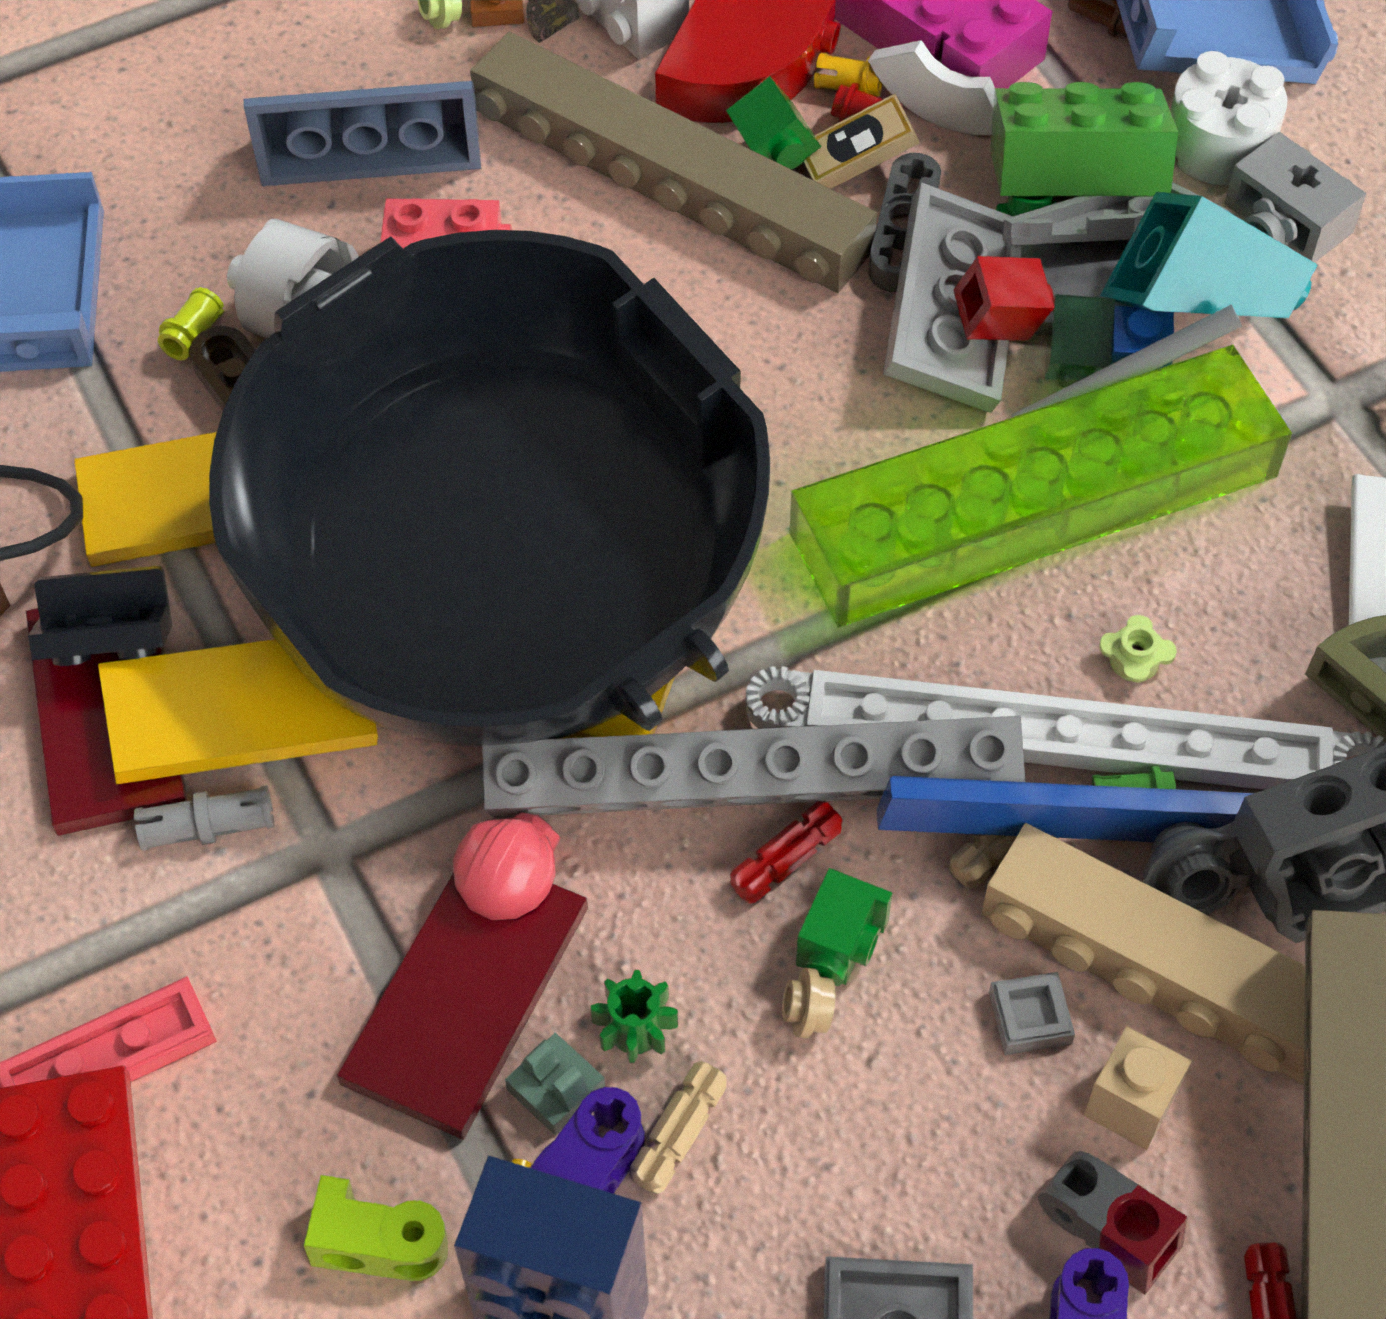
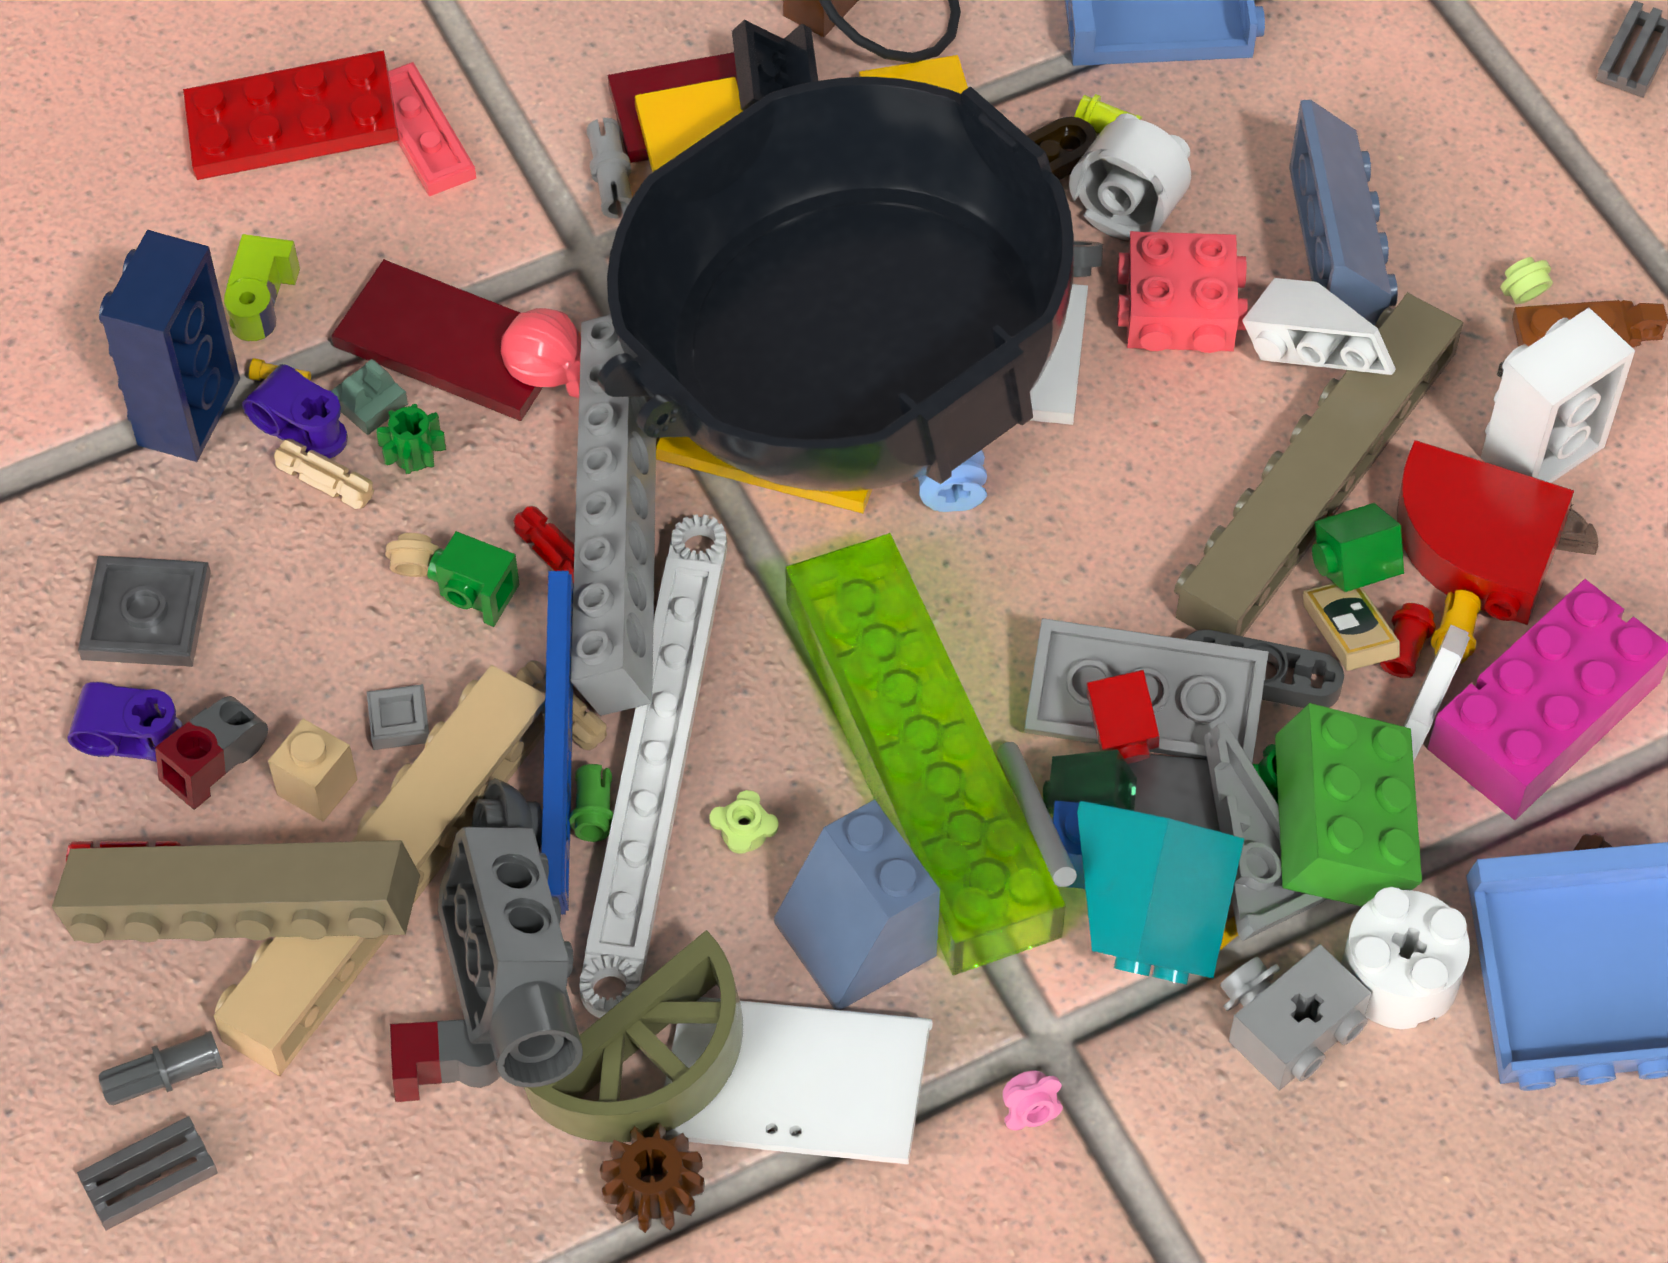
camera: 90 degrees right, 0 degrees up
(514, 136) = (1315, 328): none -> white slope
(1257, 515) = (860, 908): none -> sand blue slope

